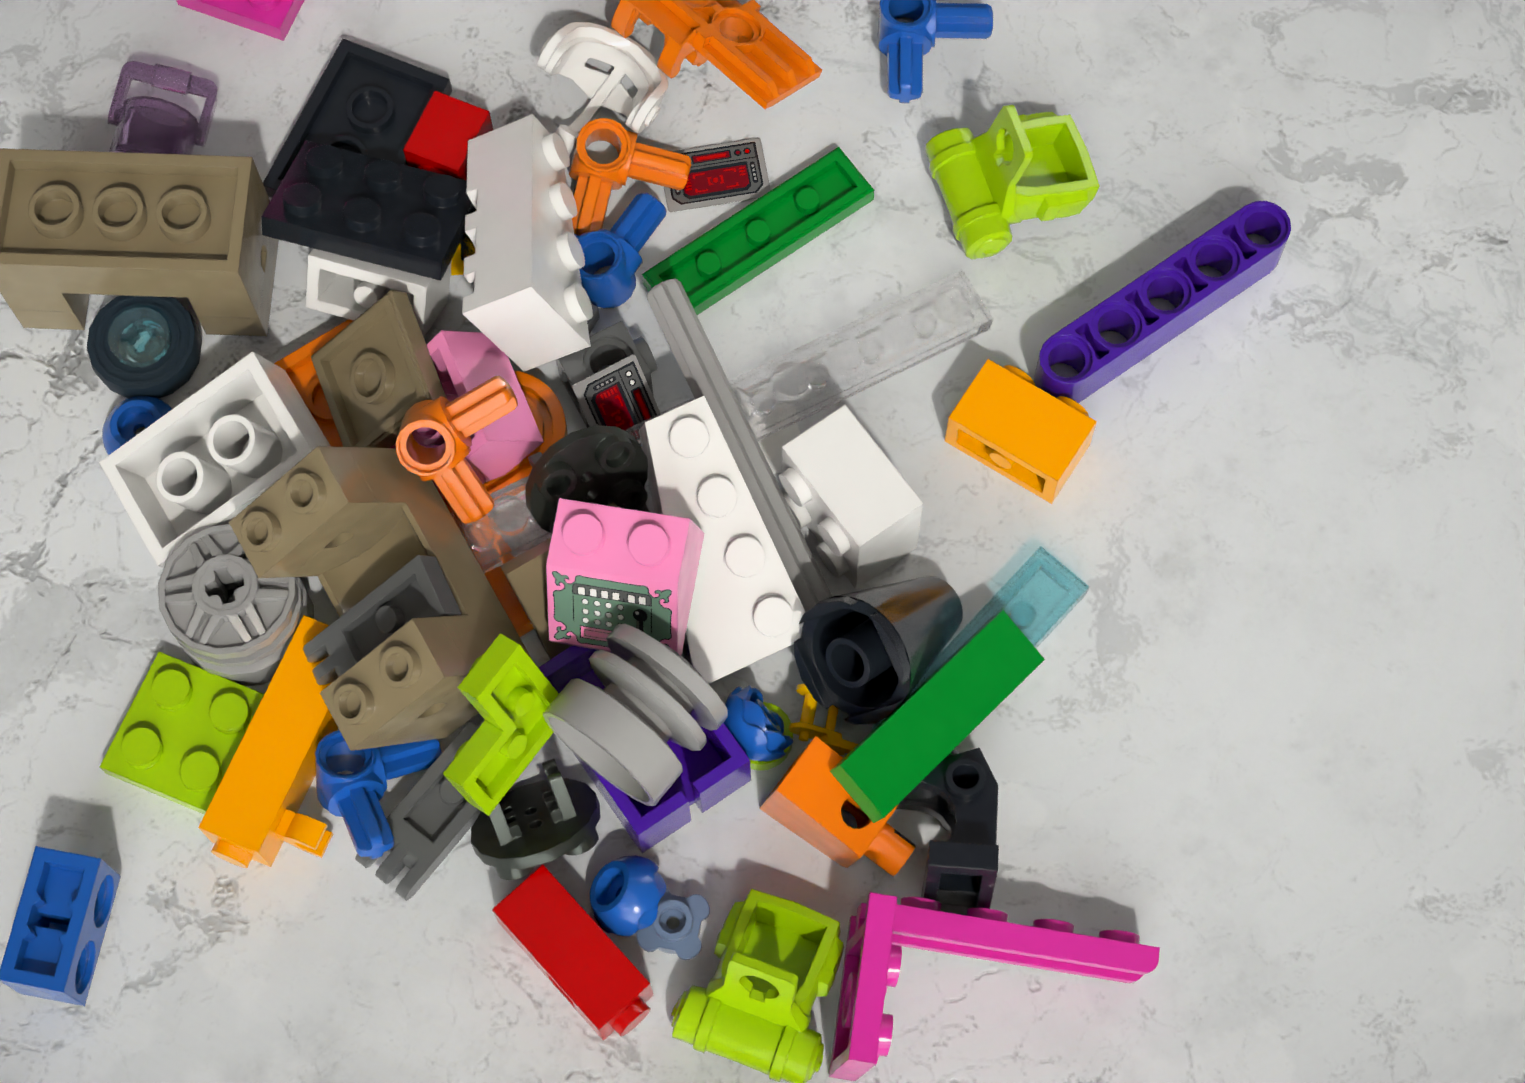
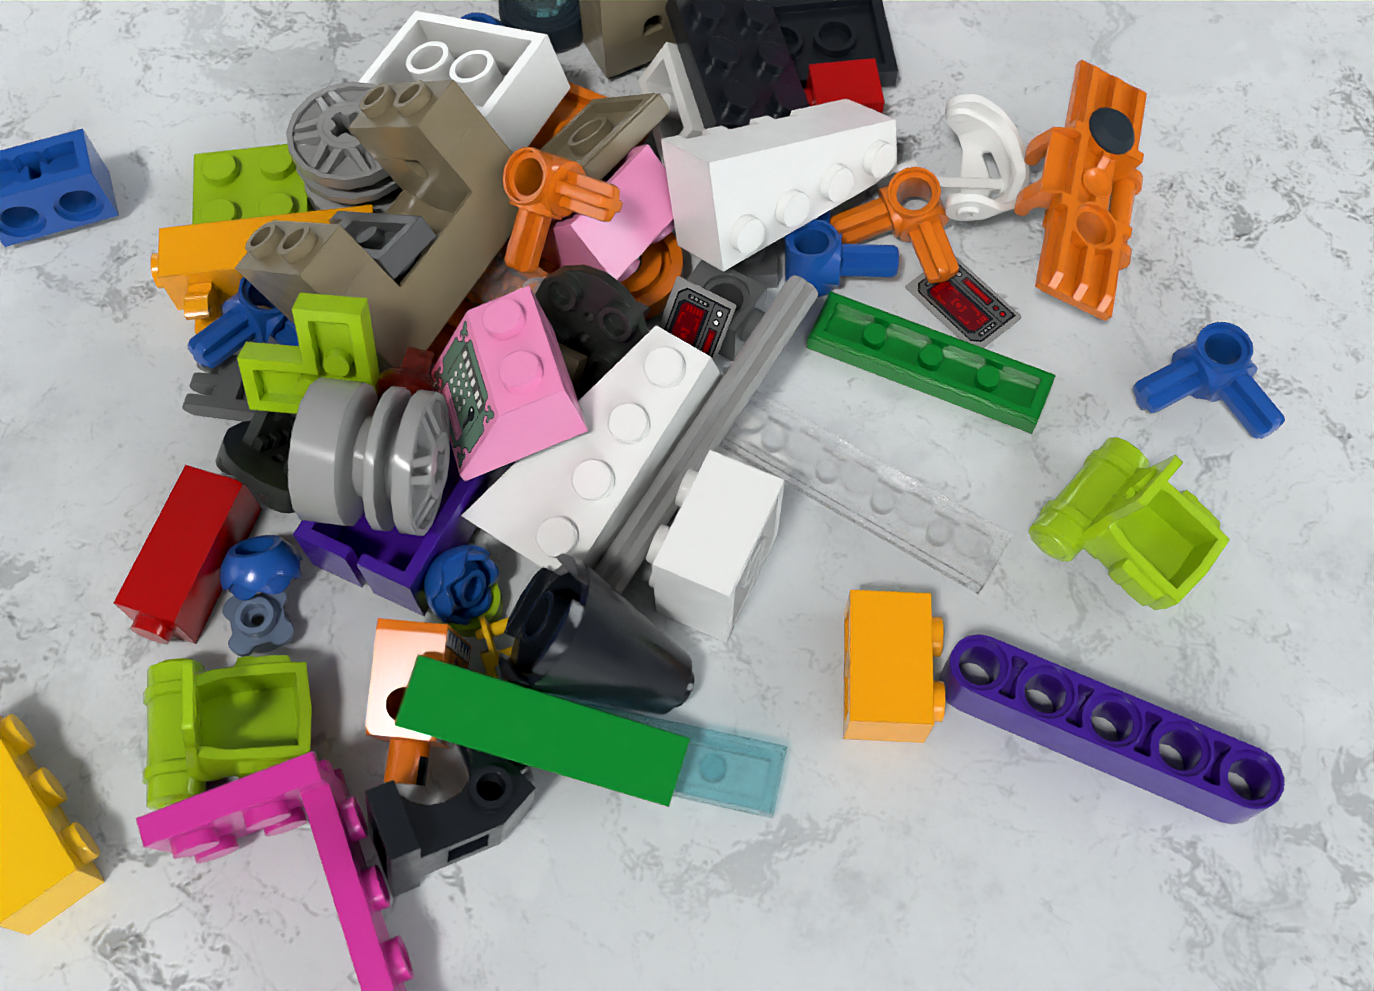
camera: 60 degrees right, 5 degrees down
(562, 656) = (412, 375): none -> clear red plate

